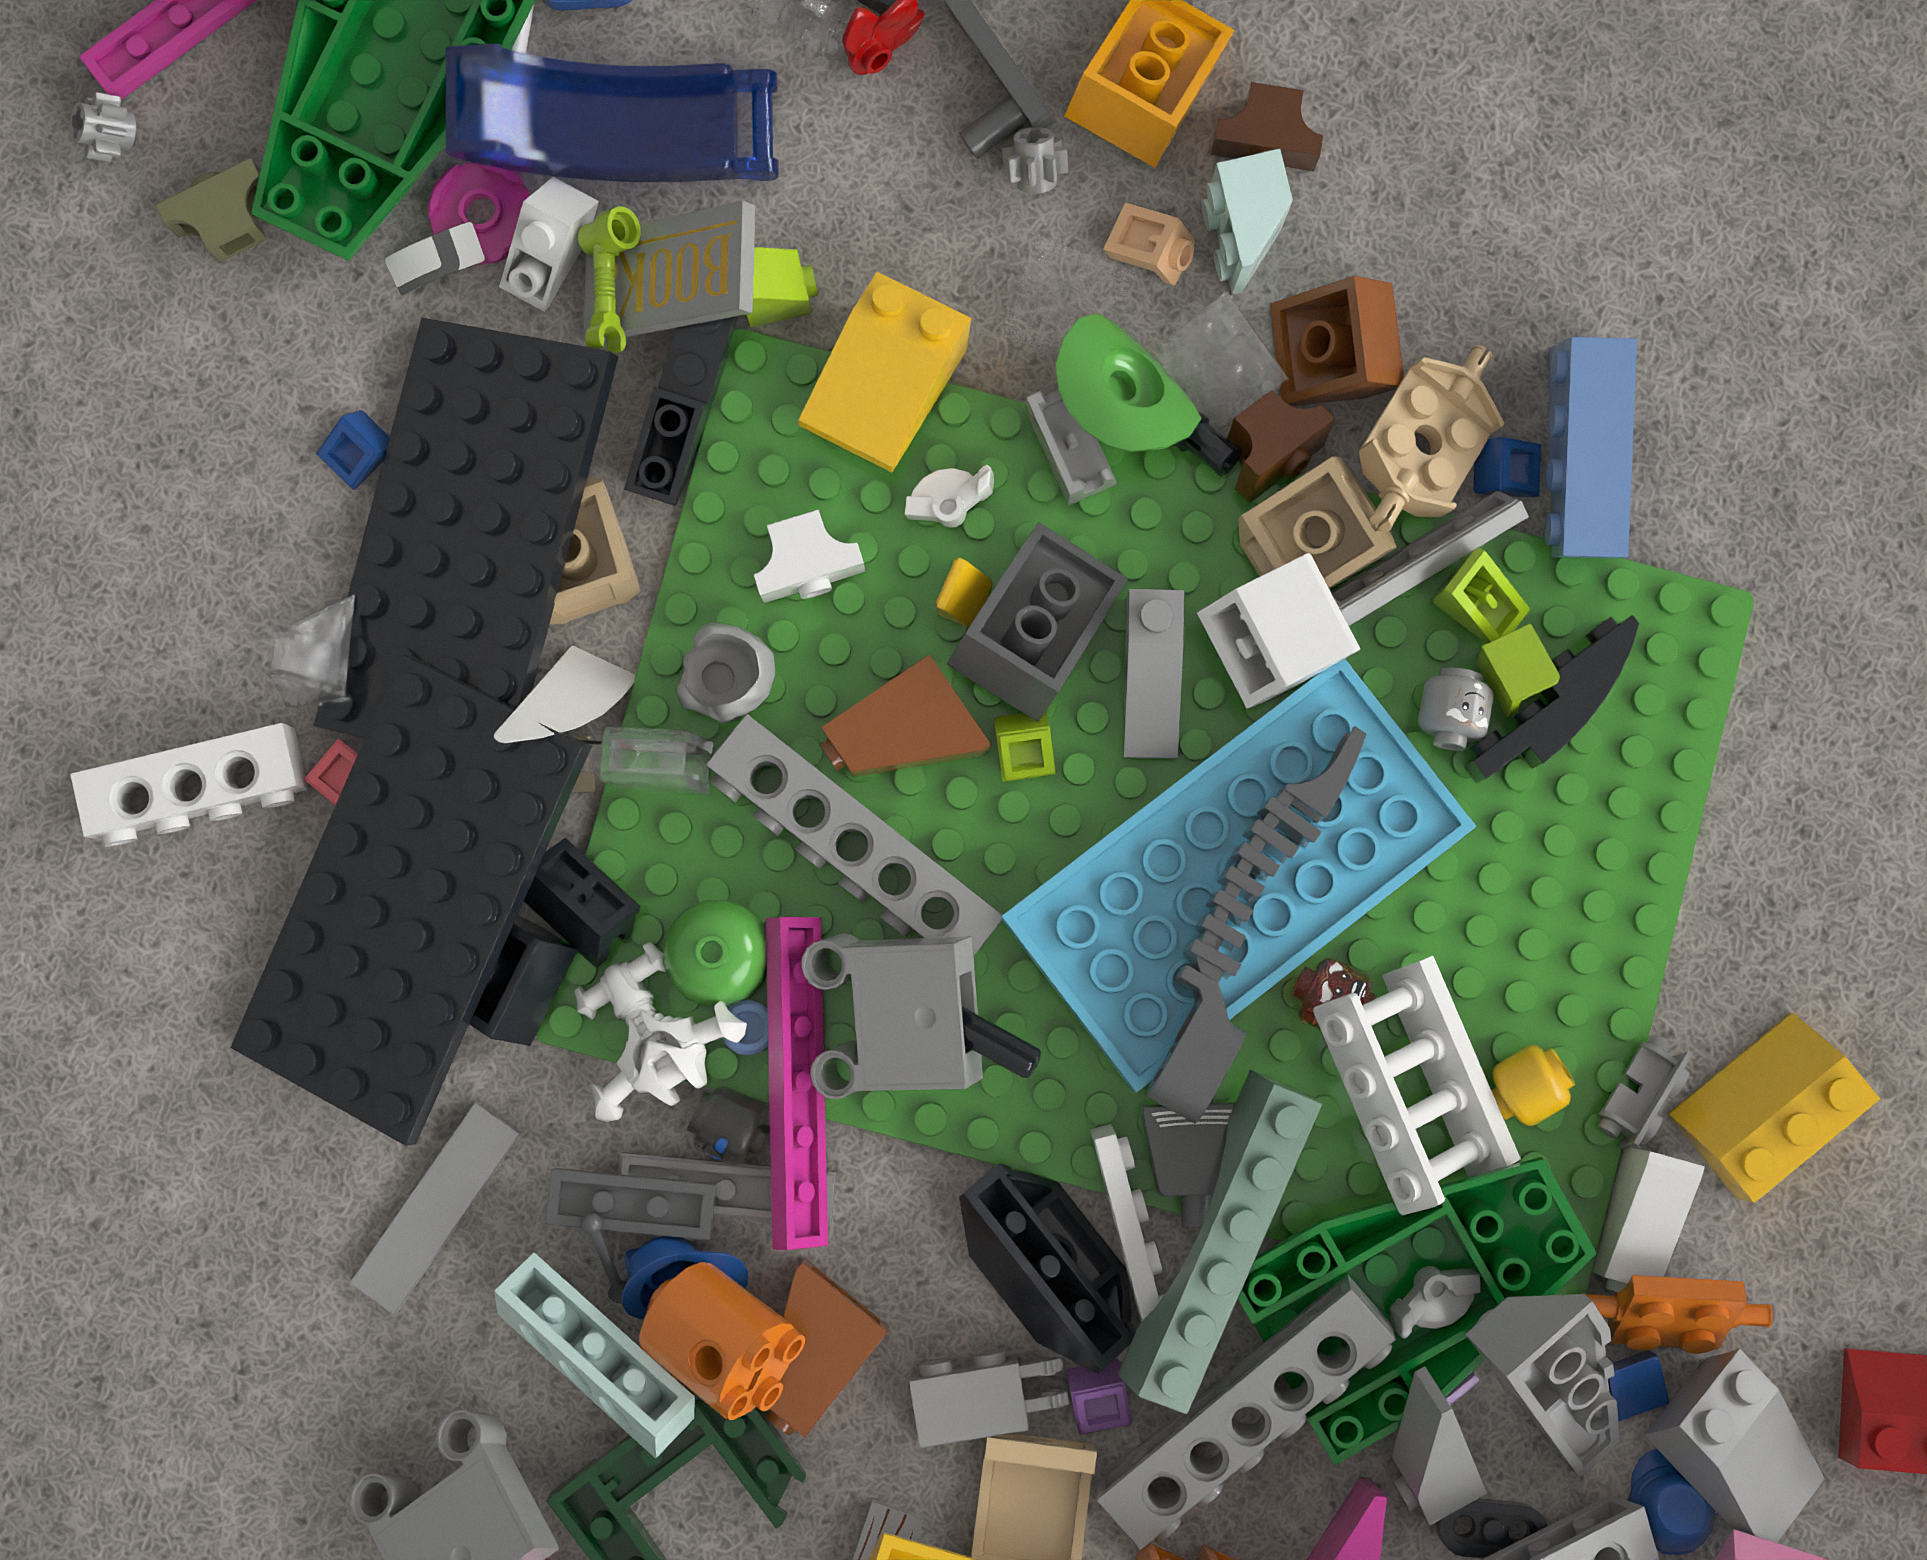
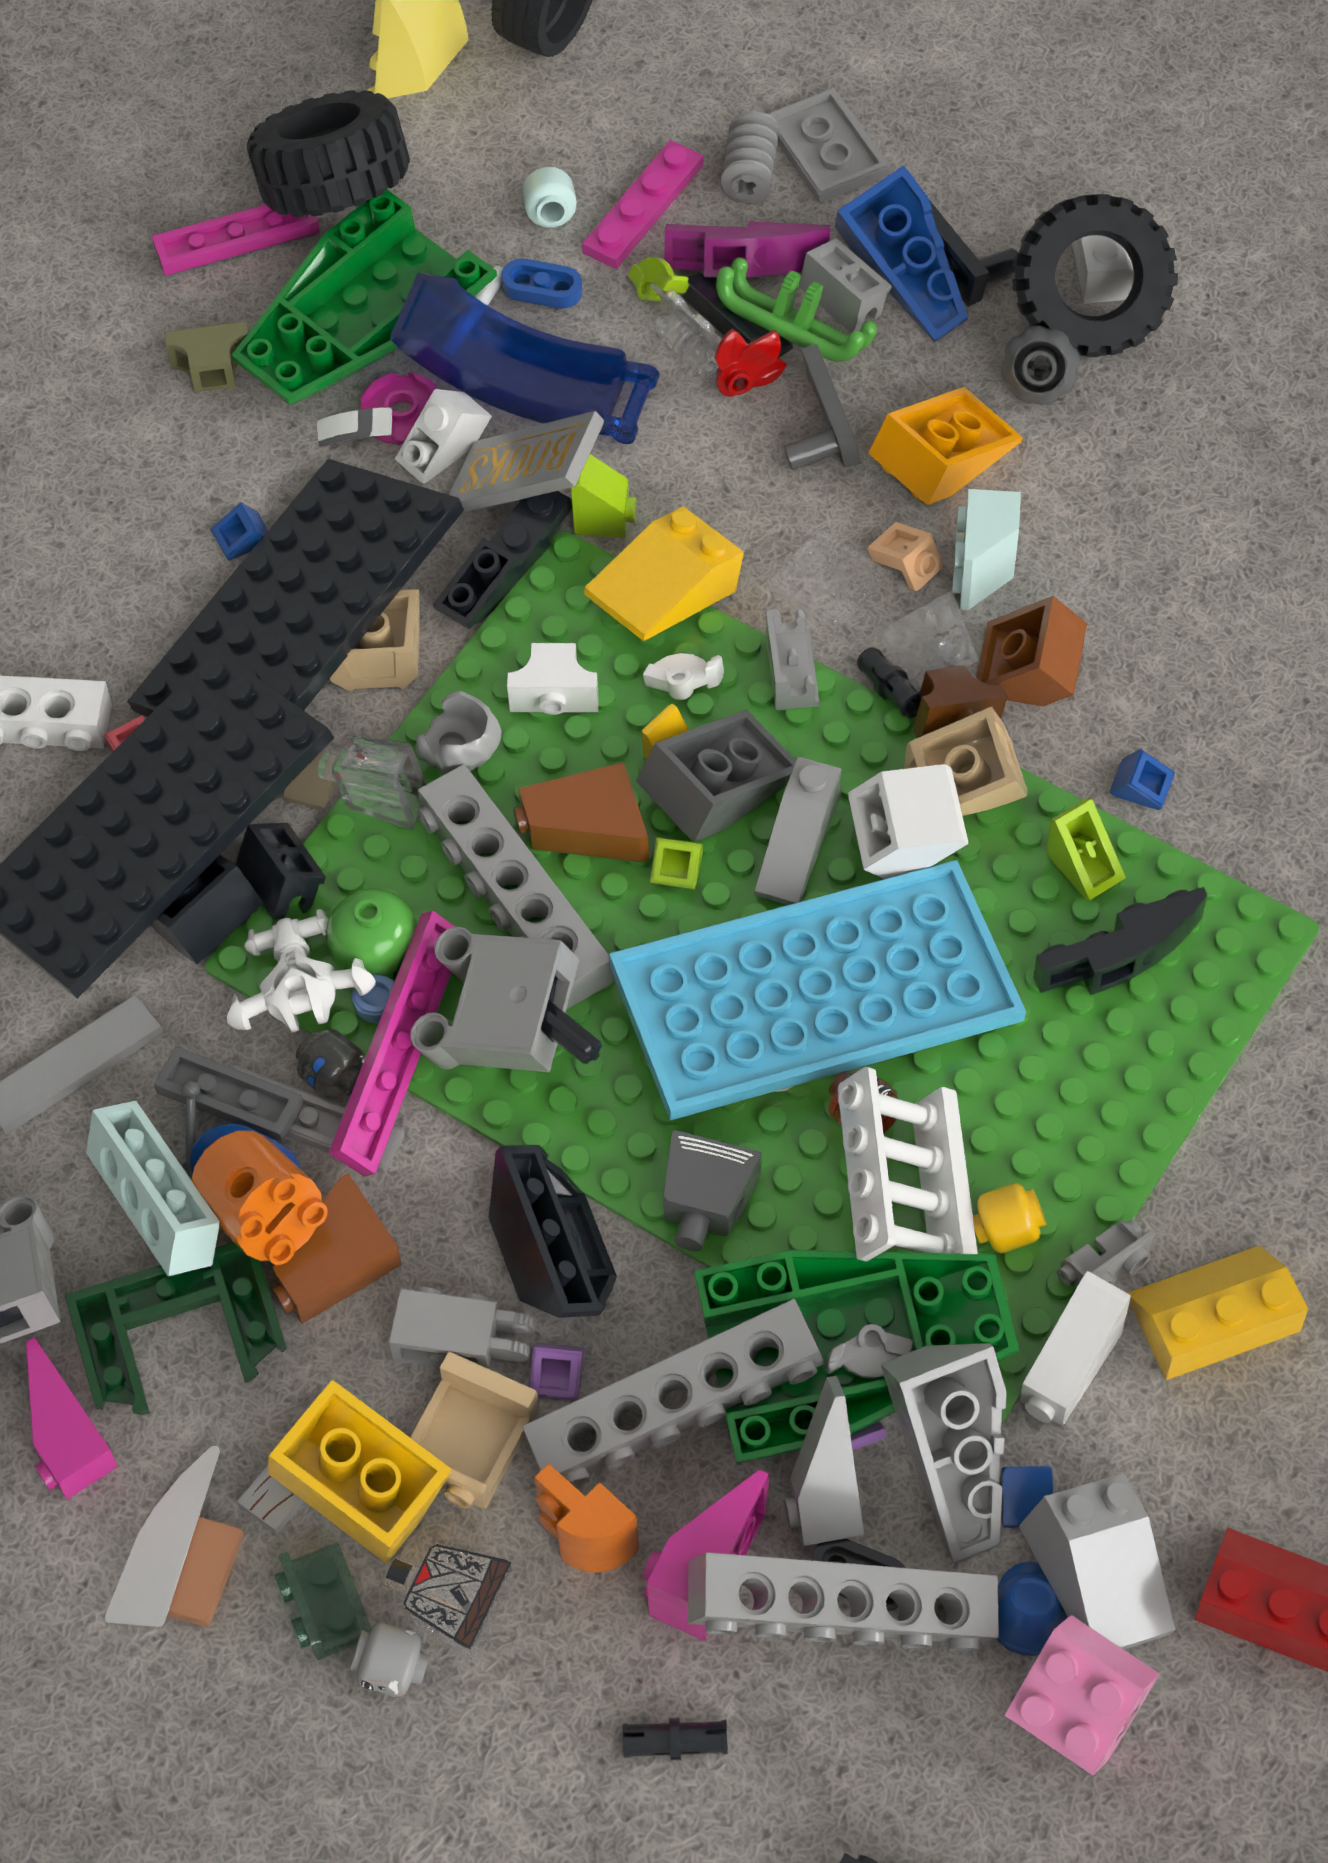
camera: 20 degrees right, 25 degrees down
(102, 127) = (148, 281): light grey gear -> none
(313, 655) = (146, 642): clear slope -> none
(568, 696) = (329, 714): white sticker -> none
(604, 240) = (491, 430): lime brick -> none
(1035, 160) = (835, 475): light grey gear -> none
(1120, 389) = (840, 625): bright green hat -> none
(1128, 1211) = (630, 1258): white plate -> none
(1187, 1323) = (697, 1238): sand green arch -> none
(1207, 1038) = (738, 1082): dark grey piece -> none
(1269, 123) = (1038, 510): reddish brown brick -> none
(1428, 555) = (1047, 809): light grey tile -> none
(1455, 708) = (1037, 920): light grey head -> none
(1456, 418) = (1094, 710): tan plate -> none
(1517, 668) = (1095, 899): lime panel -> none
(1590, 446) = (1209, 768): medium blue wedge -> none
(1678, 1312) = (1078, 1430): orange plate -> none

